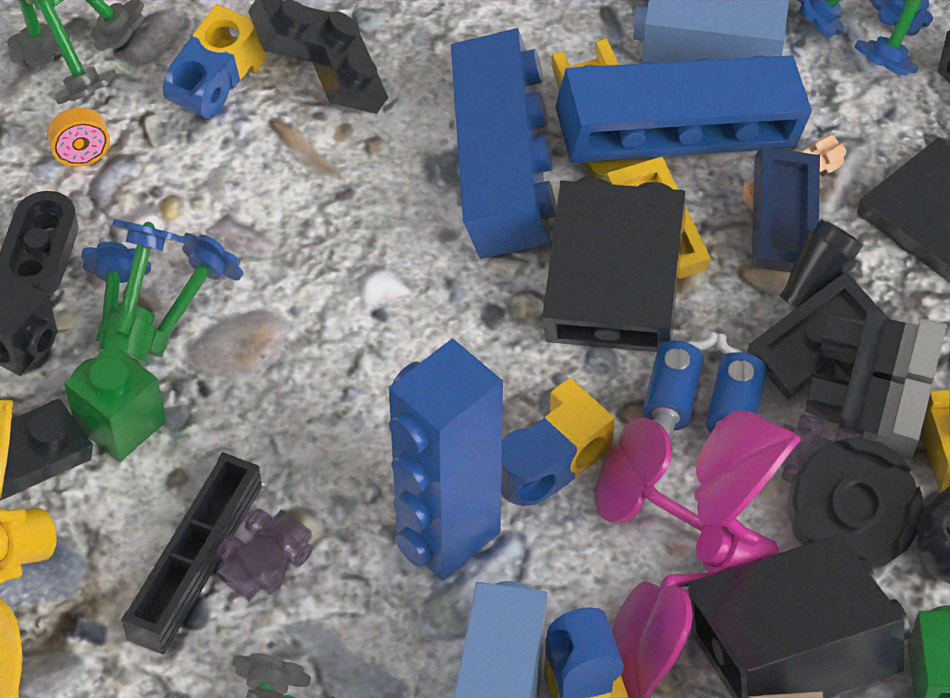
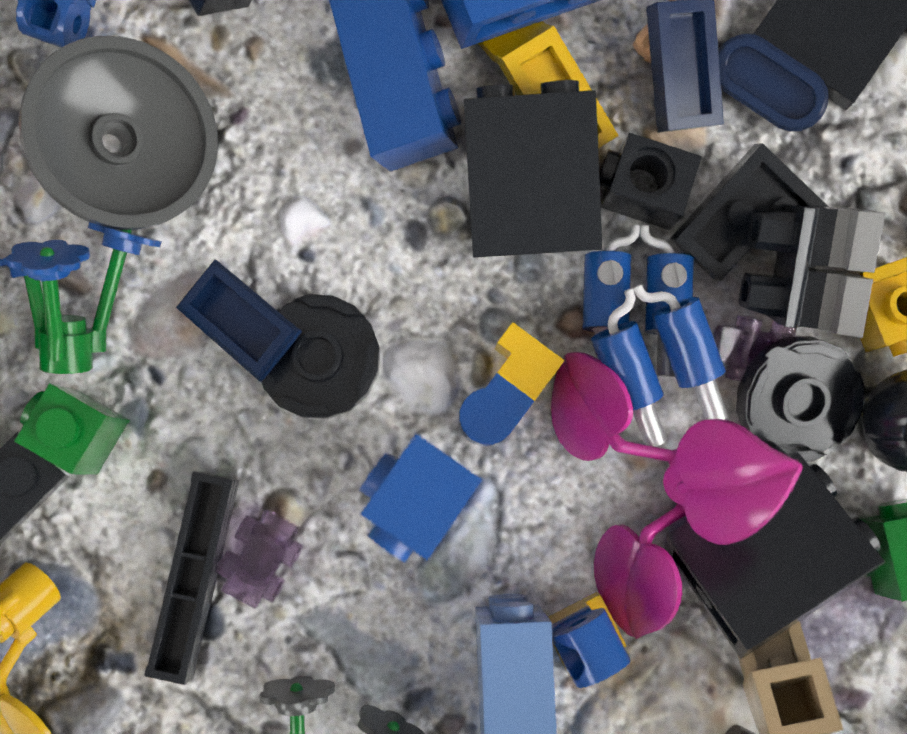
camera: 20 degrees left, 30 degrees up
(250, 154) = (142, 100): none -> dark grey dish
(303, 342) = (239, 320): none -> dark blue tile
(351, 394) = (330, 361): none -> black tile
(677, 413) = (688, 348): none -> blue piece
(731, 296) = (671, 168): none -> black brick
(820, 260) = (733, 129): black cone -> none
(891, 252) = (771, 83): none -> dark blue tile

